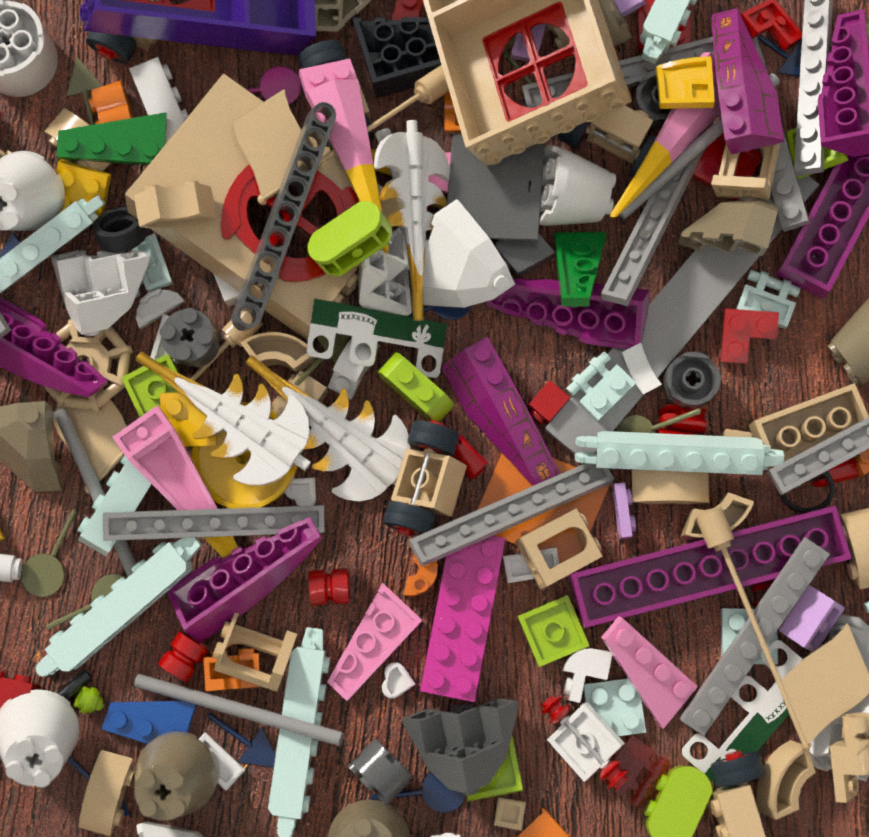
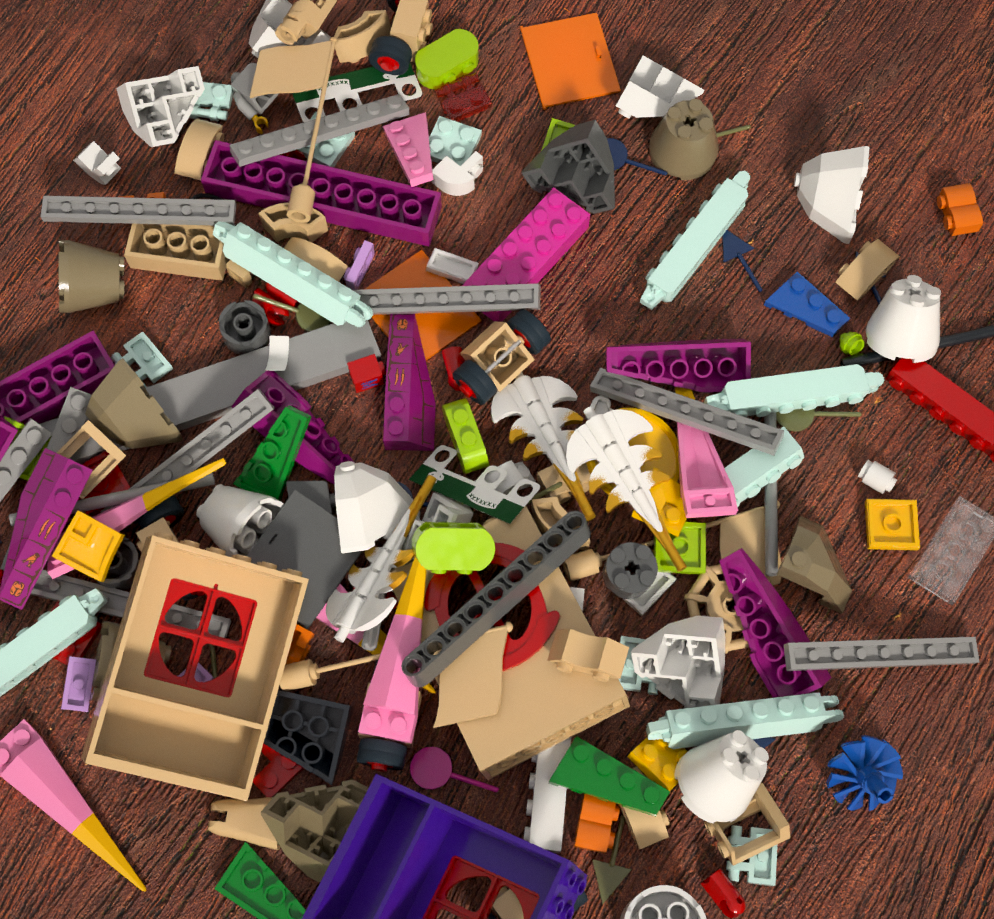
camera: 155 degrees left, 10 degrees down
(44, 573) = (843, 458): olive piece -> none
(118, 241) = (648, 684): black tyre -> none
(156, 304) = (642, 625): white tile -> none
(174, 776) = (811, 247): dark tan cone -> none
(184, 654) = (762, 333): red wheel -> none
(219, 681) = (725, 306): orange cylinder -> none
(229, 768) = (771, 255): white tile -> none
(239, 635) = (682, 291): tan panel -> none
(239, 709) = (737, 273): light grey piece -> none
(329, 586) = (618, 326): red wheel -> none
(375, 639) = (603, 274): bright pink wing -> none
(380, 771) = (649, 179): dark grey brick -> none
(396, 681) = (602, 241): white tile -> none
(422, 581) = (551, 294): orange cylinder -> none
(509, 813) = (570, 113): tan tile -> none
(537, 565) = (446, 271): tan panel -> none
(553, 631) = (464, 213): lime plate -> none
(585, 741) = (487, 126): white plate -> none
(606, 392) = (315, 353): light aqua plate -> none
(740, 326) = (177, 350): red plate -> none
(811, 619) = (271, 119): lavender brick -> none

